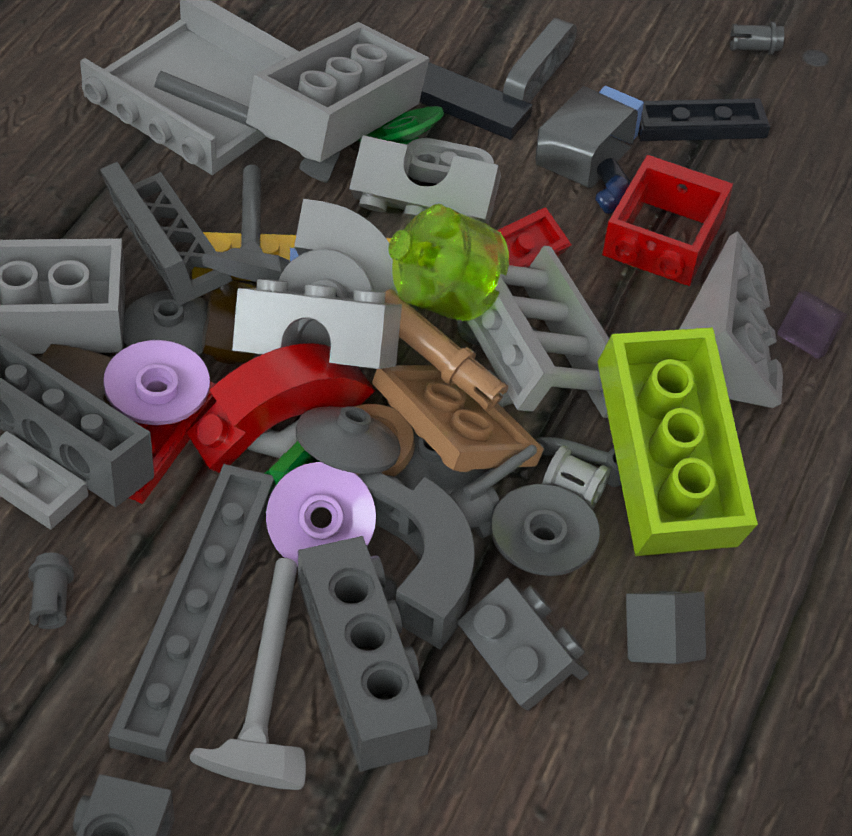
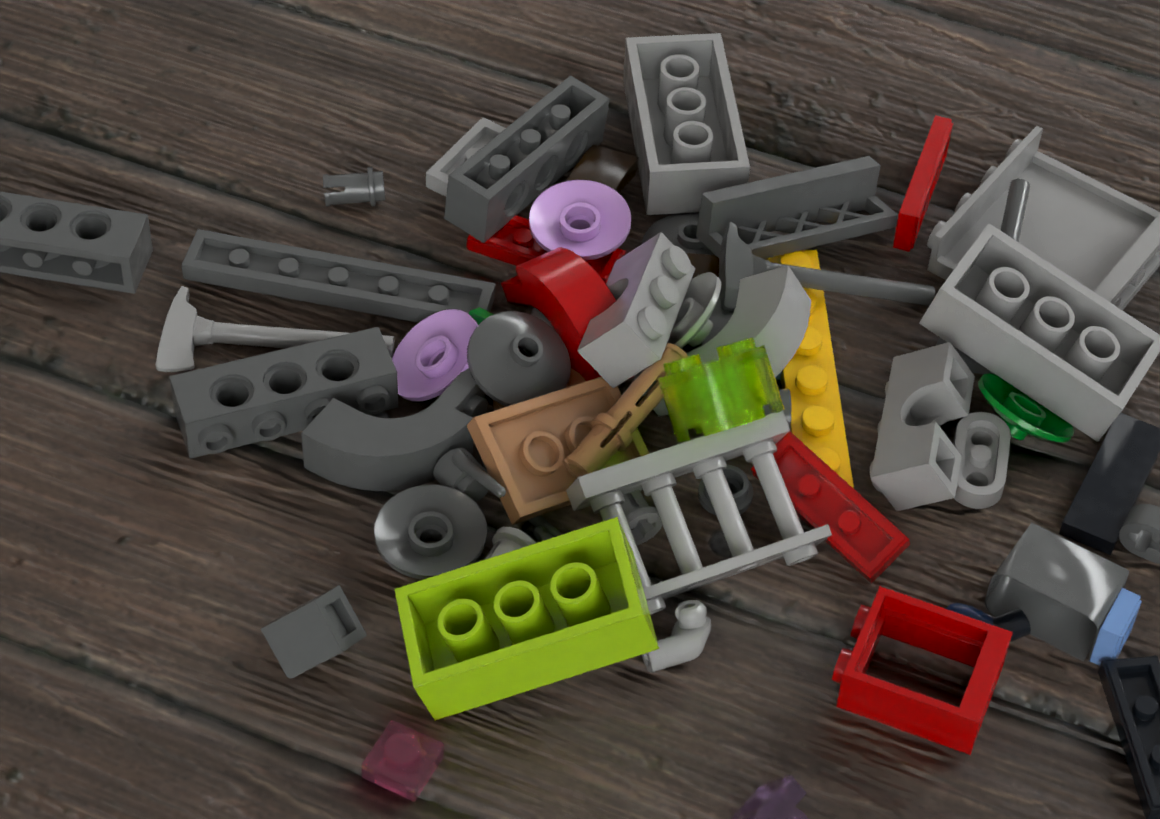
camera: 90 degrees right, 0 degrees up
(106, 144) = (923, 184): none -> red tile
(521, 643) = (299, 520): dark grey bracket -> none
(734, 306) = (739, 727): light grey wedge -> none
(788, 567) = (402, 760): none -> clear pink plate

